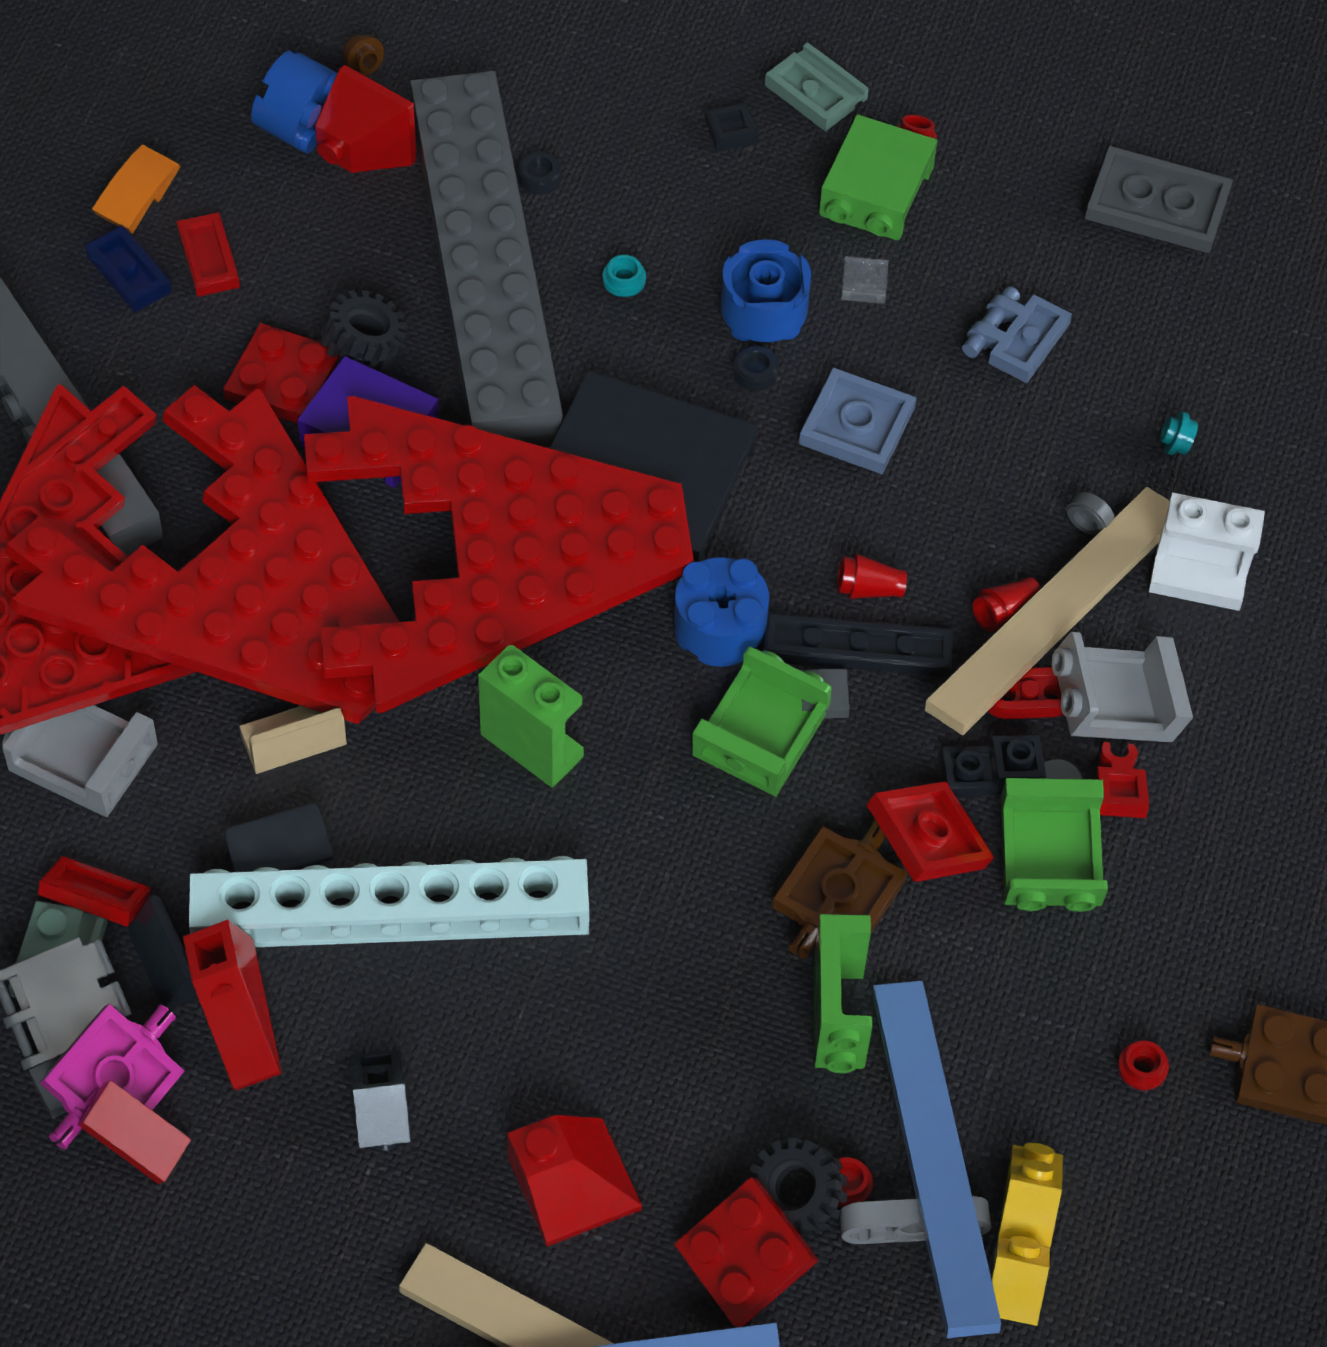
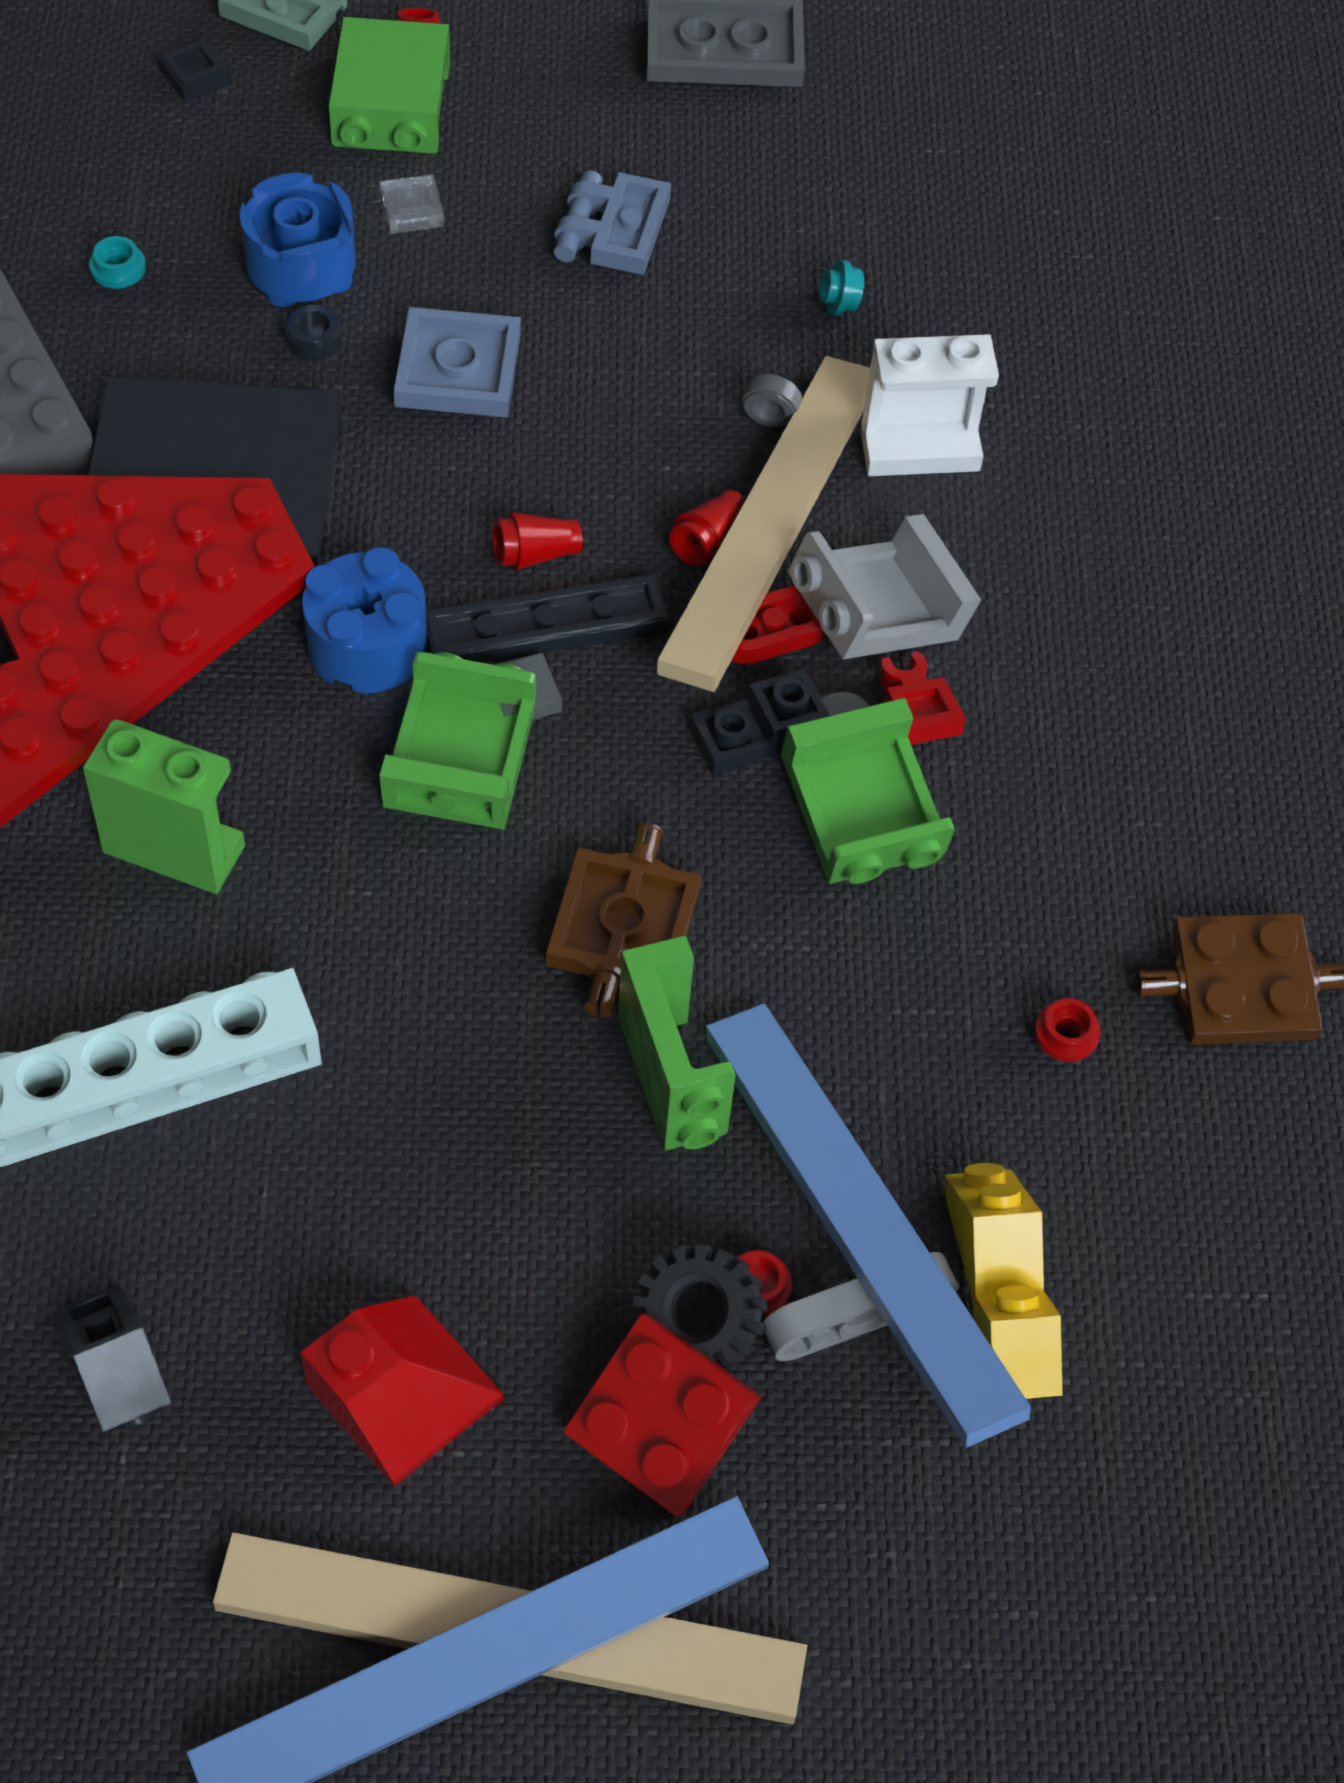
camera: 20 degrees left, 0 degrees up
(930, 831) = (712, 818): red plate -> none

